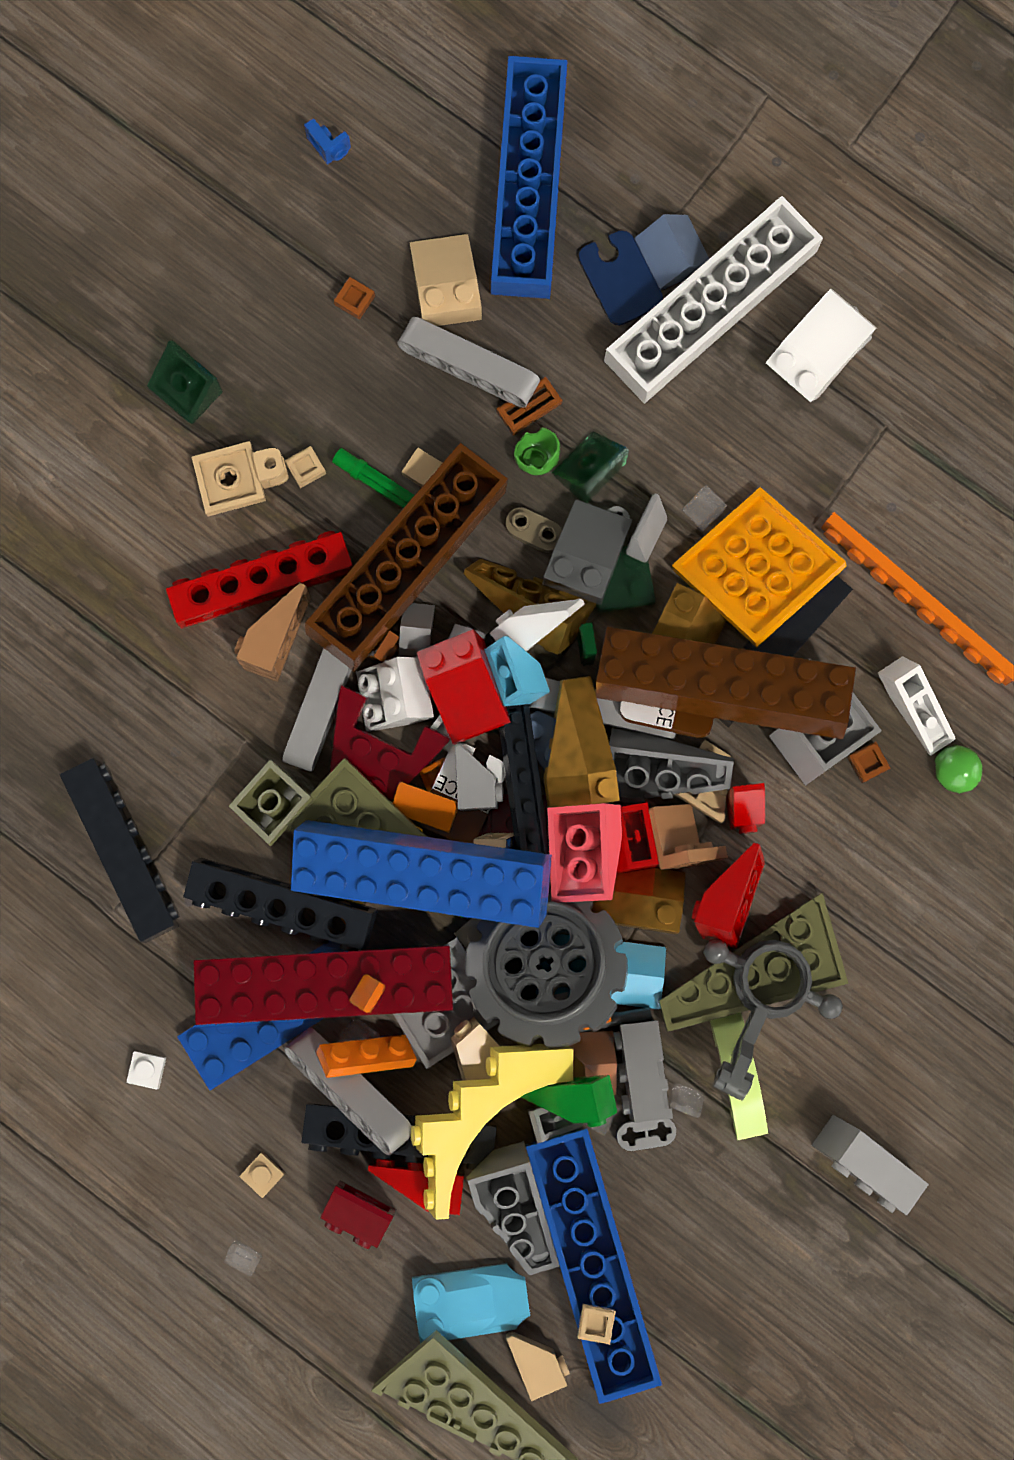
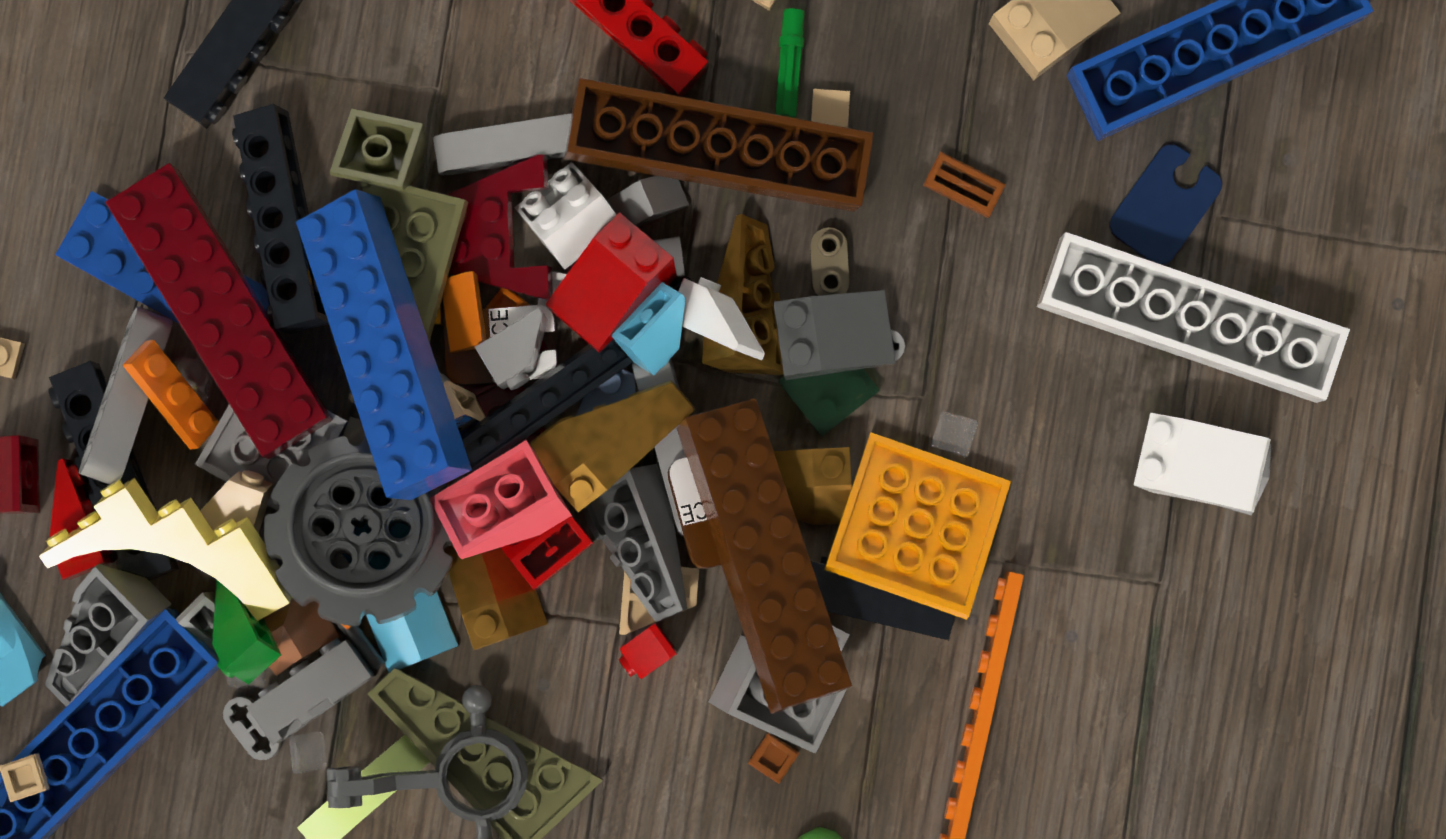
camera: 65 degrees right, 5 degrees up
(146, 1070) = (41, 179): white plate -> none
(272, 636) = (551, 54): medium nougat slope -> none
(367, 993) = (227, 359): orange slope -> none
(385, 648) = (610, 177): dark orange plate -> none
(468, 362) = (973, 93): light grey beam -> none
(537, 452) = (914, 221): bright green hair -> none
(586, 644) = (729, 387): dark green tile -> none
(591, 466) = (932, 286): clear green slope -> none
(647, 530) = (893, 385): light grey slope -> none
(671, 249) = (1228, 244): sand blue slope -> none
(678, 838) = (575, 597): medium nougat bracket -> none
(729, 899) = (536, 685): red slope -> none
(917, 703) = (863, 776): white slope -> none

